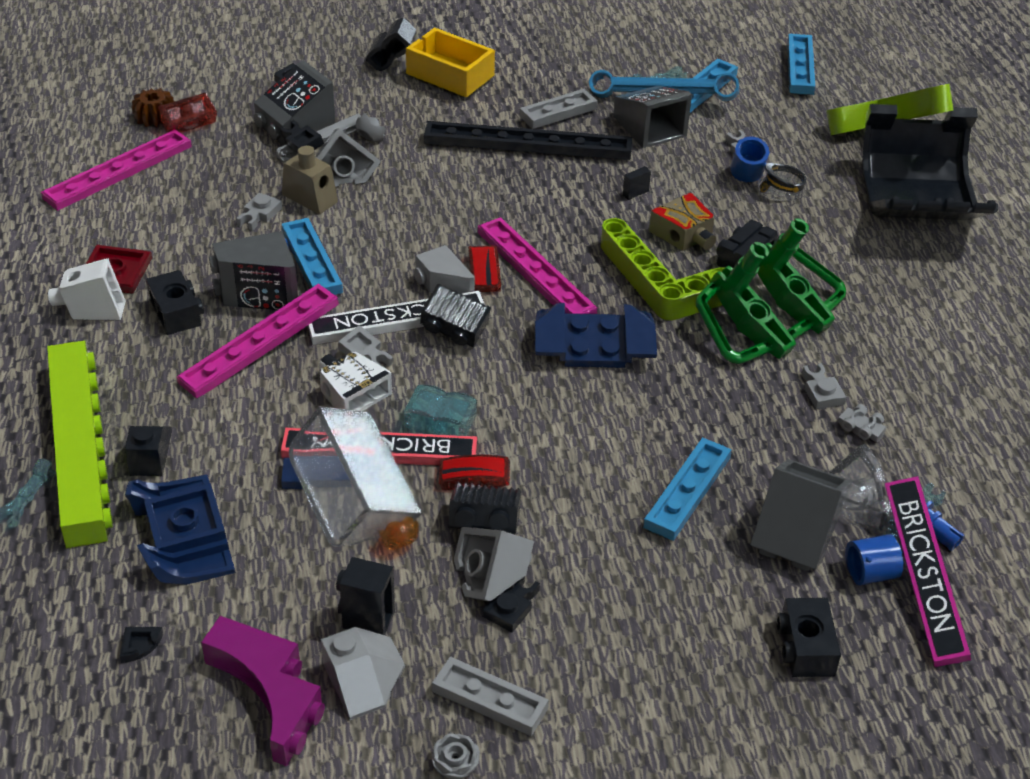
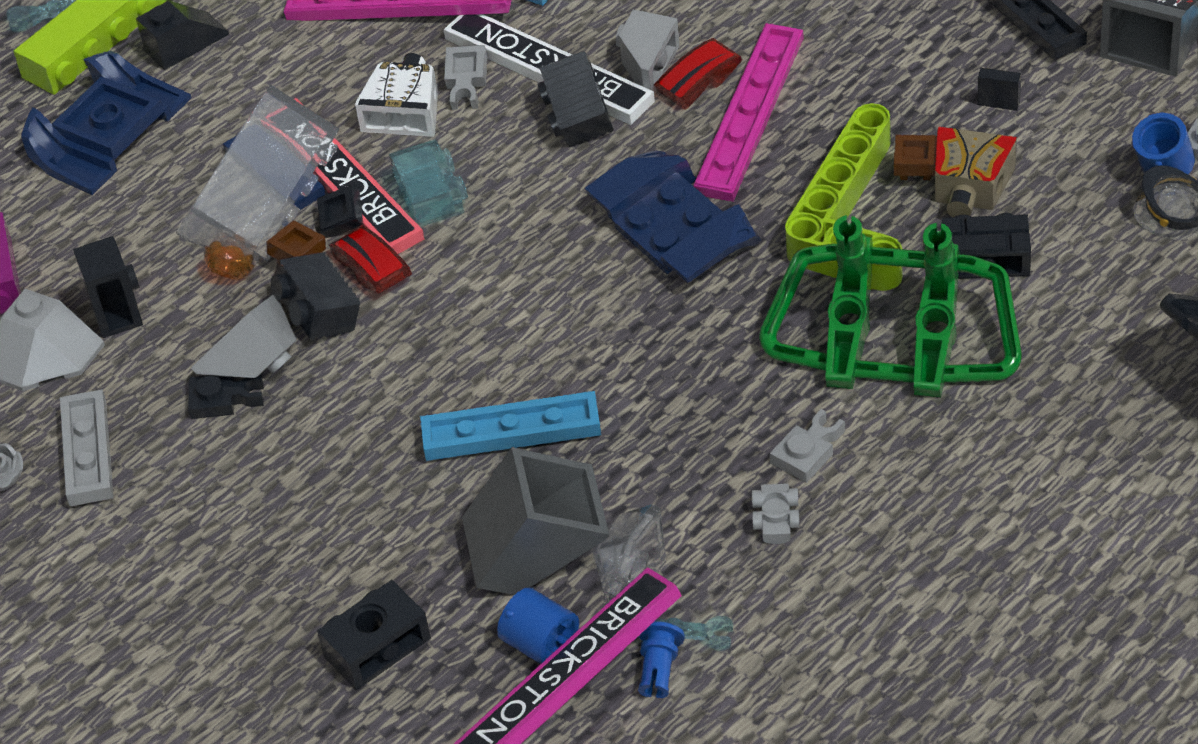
camera: 60 degrees right, 5 degrees up
(417, 461) = (340, 211): none -> black tile
(431, 494) = (295, 241): none -> reddish brown tile
(655, 232) = (915, 156): none -> reddish brown tile

